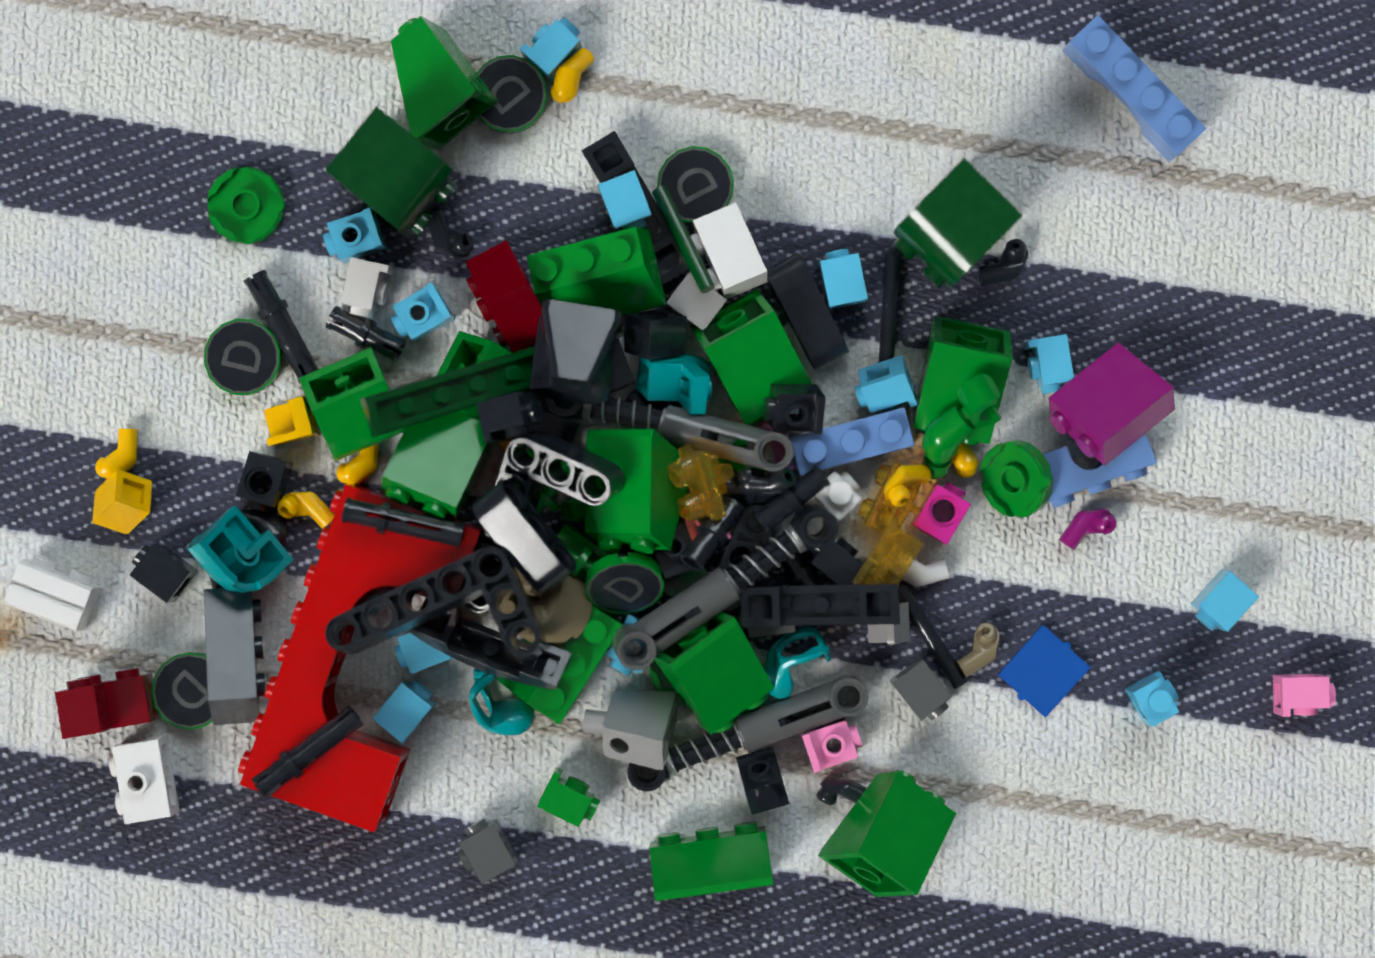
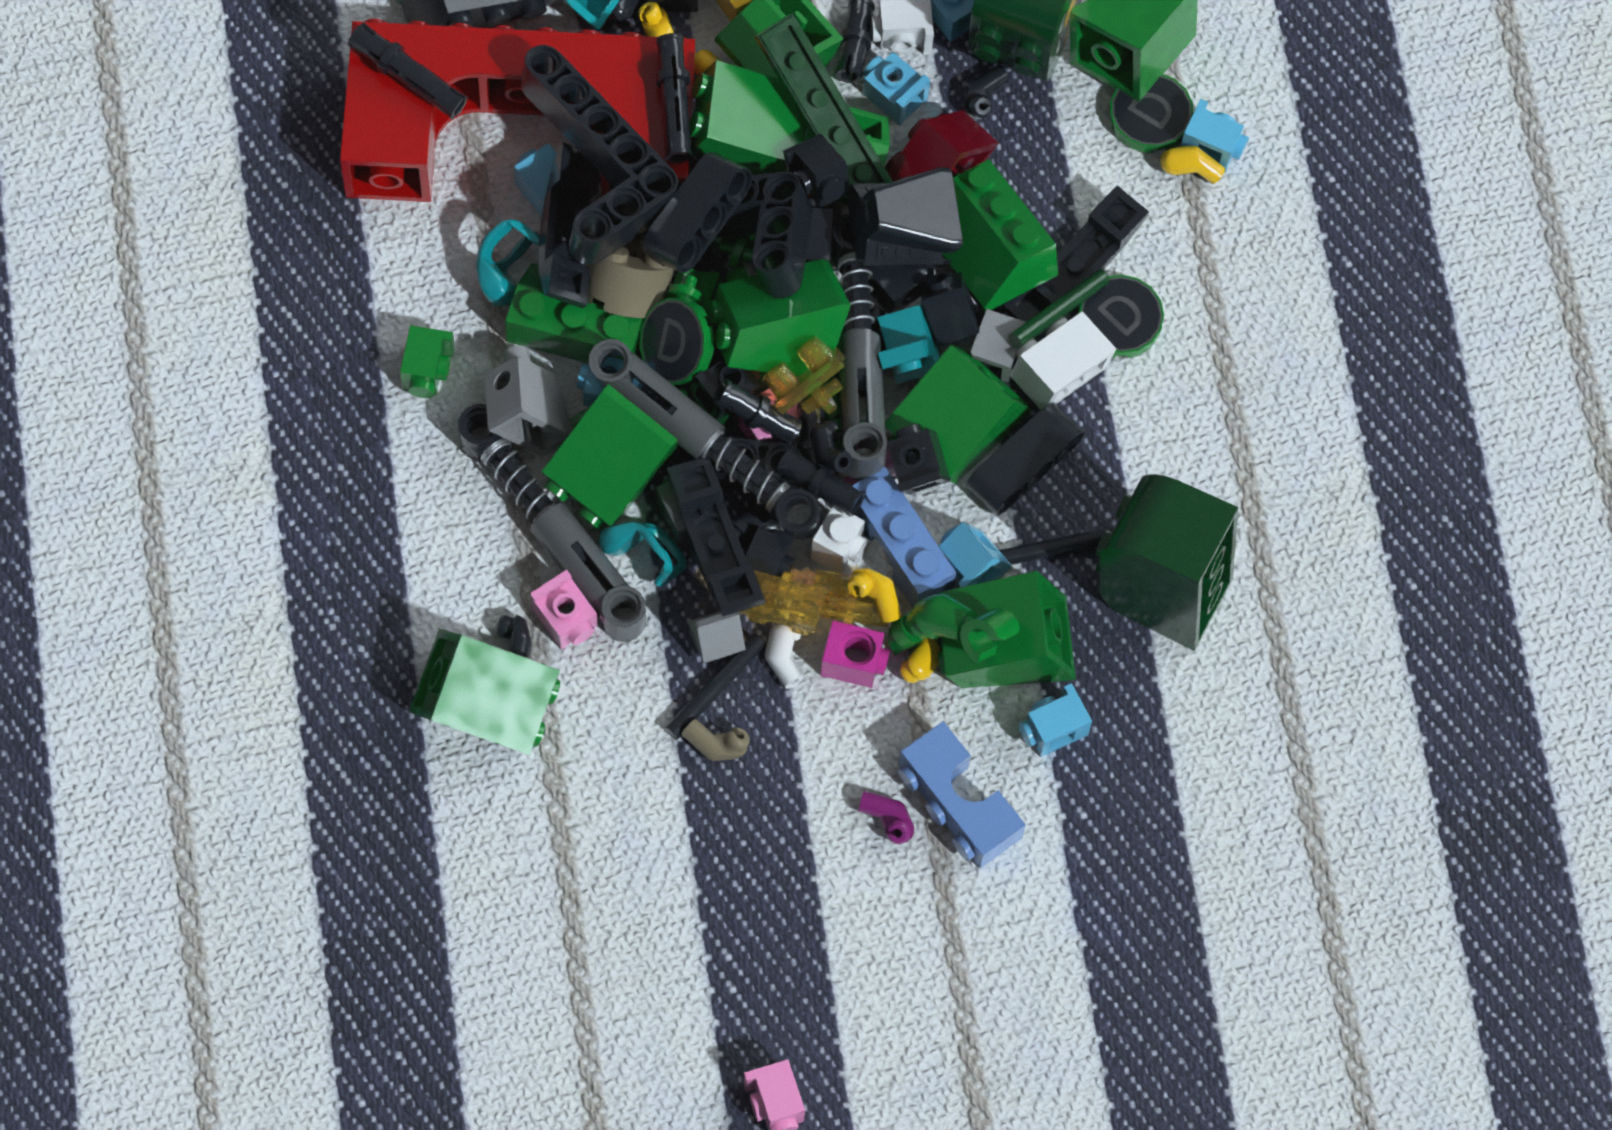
camera: 70 degrees right, 20 degrees down
(405, 709) = (472, 178): medium azure brick -> none
(486, 850) = (346, 297): dark grey brick -> none
(625, 201) = (1081, 240): medium azure brick -> none
(710, 861) = (401, 518): green slope -> none
(762, 780) = (505, 547): black brick -> none
(842, 279) = (1071, 485): medium azure brick -> none
(922, 690) = (653, 687): dark grey brick -> none
(1008, 266) = (1146, 655): black arm -> none
(1016, 478) = (917, 717): green tile -> none
(1043, 670) = (713, 818): blue piece -> none
(1111, 404) = (1030, 784): magenta brick -> none
(1114, 65) = (1382, 724): medium blue arch -> none
(1153, 699) = (720, 936): medium azure brick -> none
(1223, 601) = (852, 981): medium azure brick -> none

